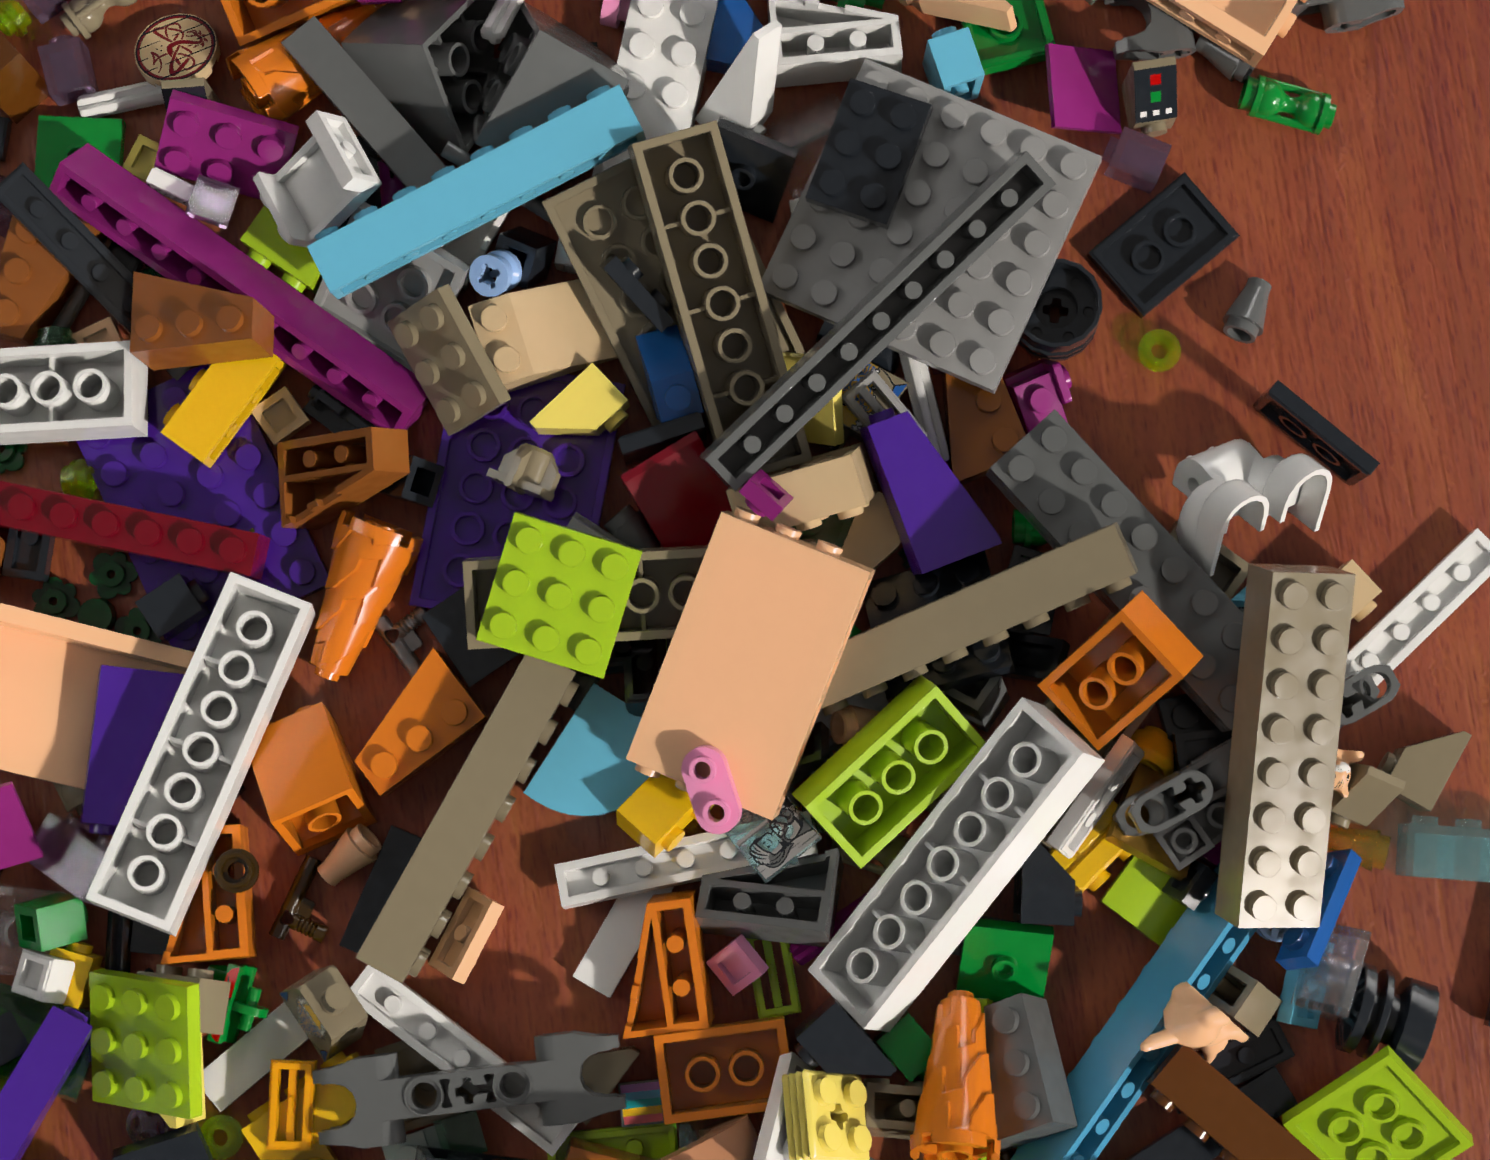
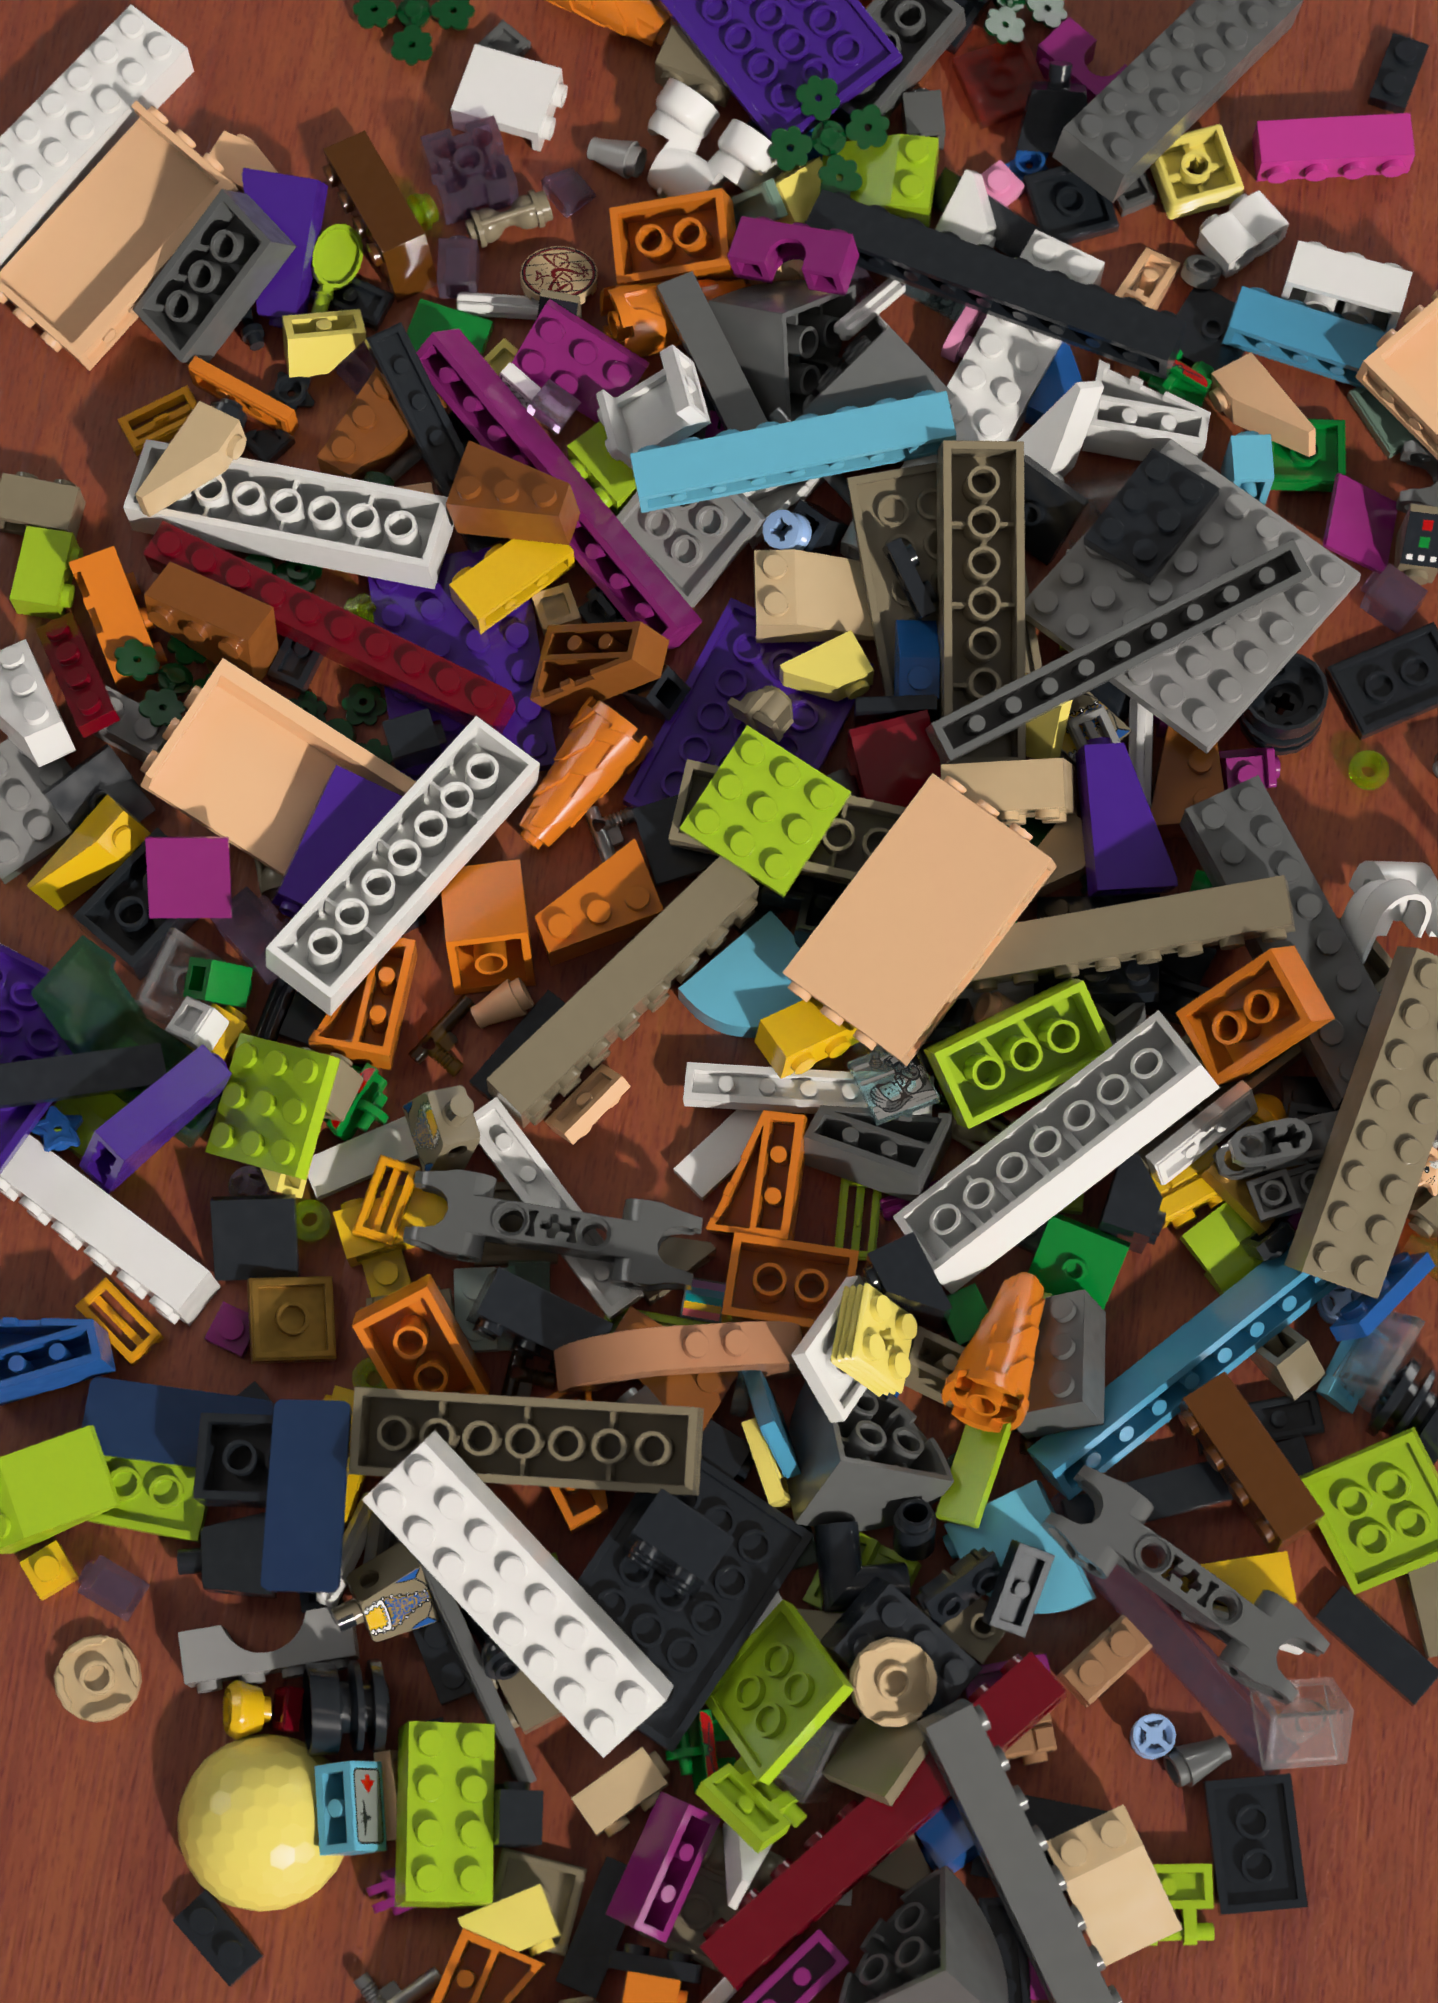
camera: 15 degrees right, 10 degrees down
(223, 867) = (401, 965): dark brown plate -> none
(448, 360) = (723, 592): dark tan plate -> none
(711, 790) = (853, 1015): bright pink plate -> none
(737, 965) = (828, 1197): bright pink plate -> none
(765, 495) = (975, 772): magenta plate -> none
(1194, 1024) = (1241, 1357): light nougat animal -> none

